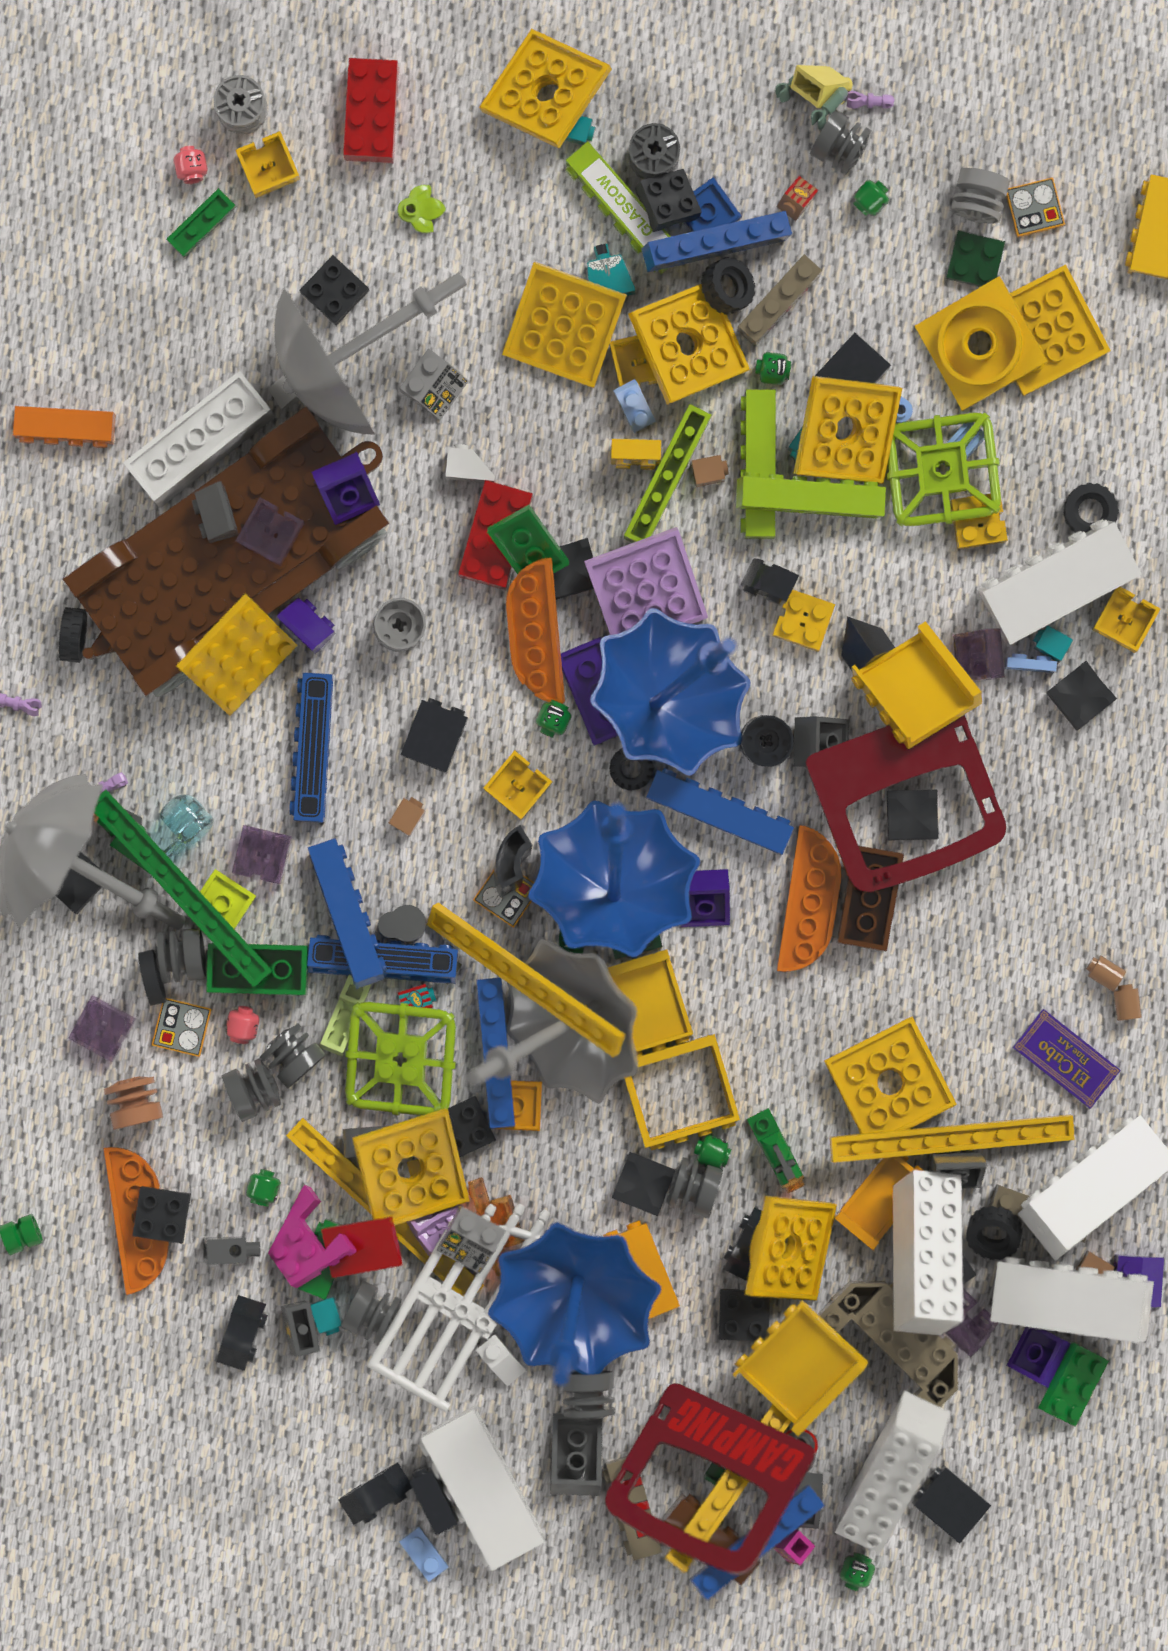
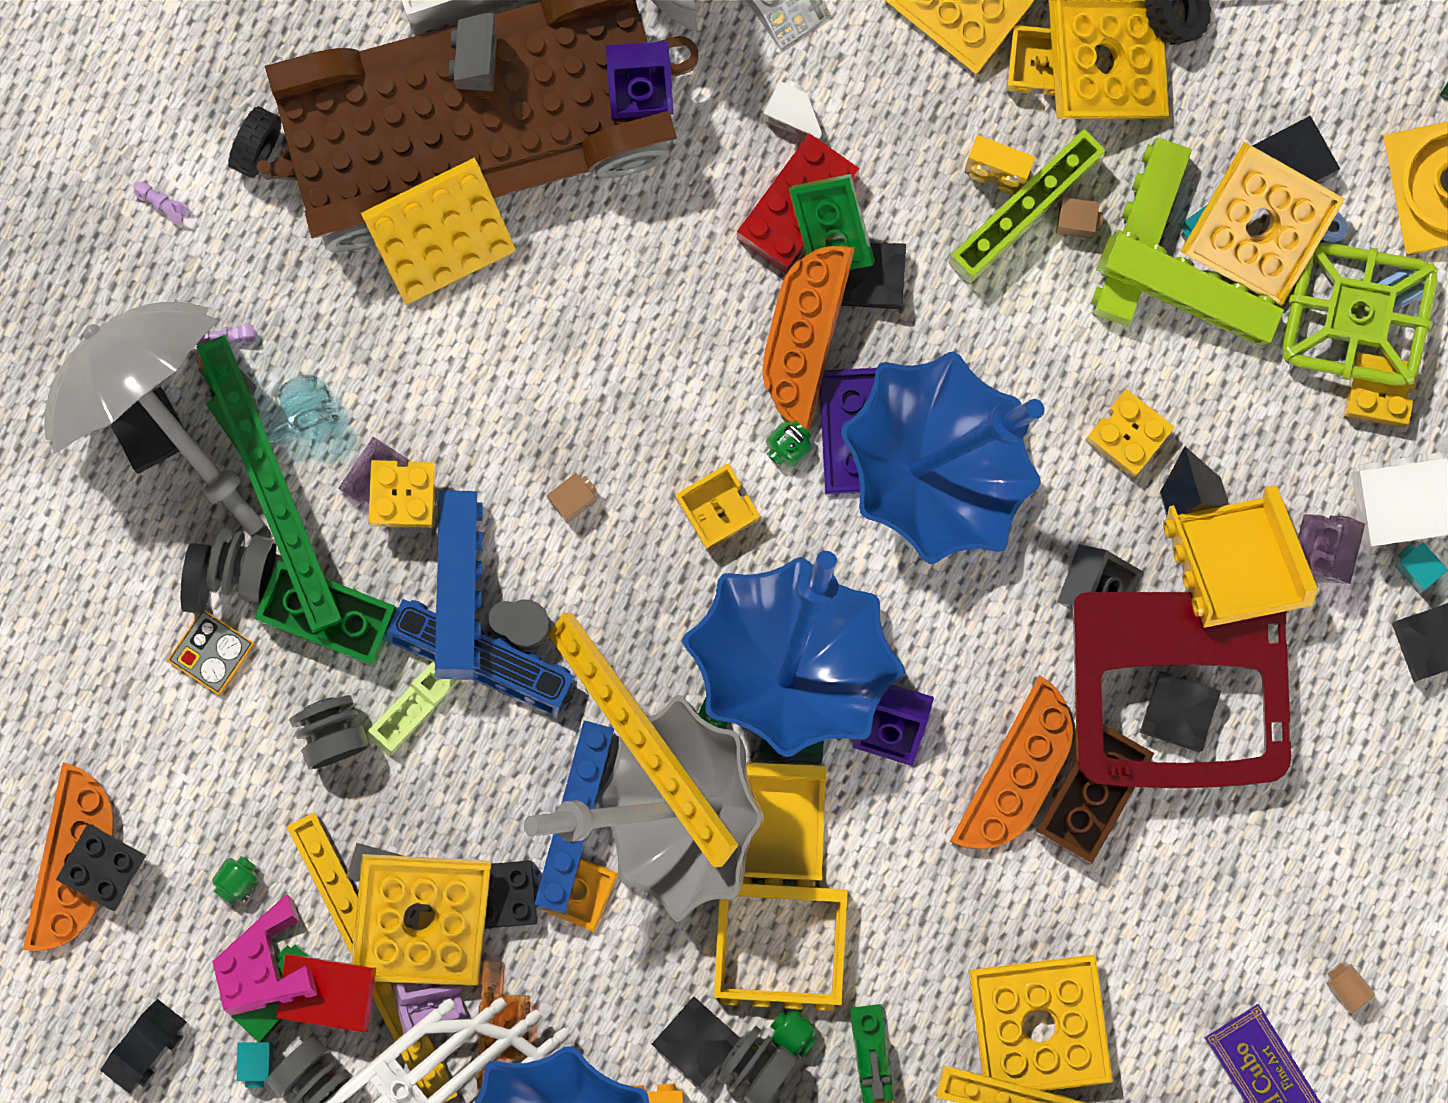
camera: 20 degrees right, 5 degrees down
(91, 1021) = (104, 606): clear purple piece -> none
(133, 1102) = (118, 720): nougat wheel -> none
(217, 1250) = (152, 935): dark grey torso -> none
(227, 897) = (323, 517): neon yellow plate -> none
(242, 1025) = (283, 675): coral head -> none
(251, 1089) = (264, 755): dark grey wheel -> none
(264, 544) = (530, 80): piece -> none
(286, 871) = (402, 509): none -> yellow piece
(300, 1328) = (216, 1066): dark grey brick -> none
(306, 624) = (535, 230): dark purple slope -> none
(313, 747) = (489, 377): brick -> none
(388, 1047) = (448, 764): lime plate -> none
(405, 611) = (645, 248): light grey wheel -> none
(418, 996) = (503, 719): brick -> none
(435, 735) = (640, 413): black brick -> none
(470, 1239) = (461, 1031): light grey slope -> none
(508, 861) = (676, 589): black brick -> none
(510, 906) = (649, 651): tile -> none
(626, 782) = (847, 549): black tyre -> none
(634, 405) = (1017, 110): light blue plate -> none
(646, 577) = (960, 312): lavender plate -> none
(720, 812) = (949, 626): blue brick -> none
(769, 581) = (1105, 372): black brick -> none
(773, 368) = (1197, 126): green head -> none
(779, 300) = (1233, 48): dark tan brick -> none
(781, 739) = (1040, 541): black wheel -> none
(1041, 664) = (1398, 587): light blue plate -> none
(1127, 1002) = (1363, 1033): medium nougat brick -> none

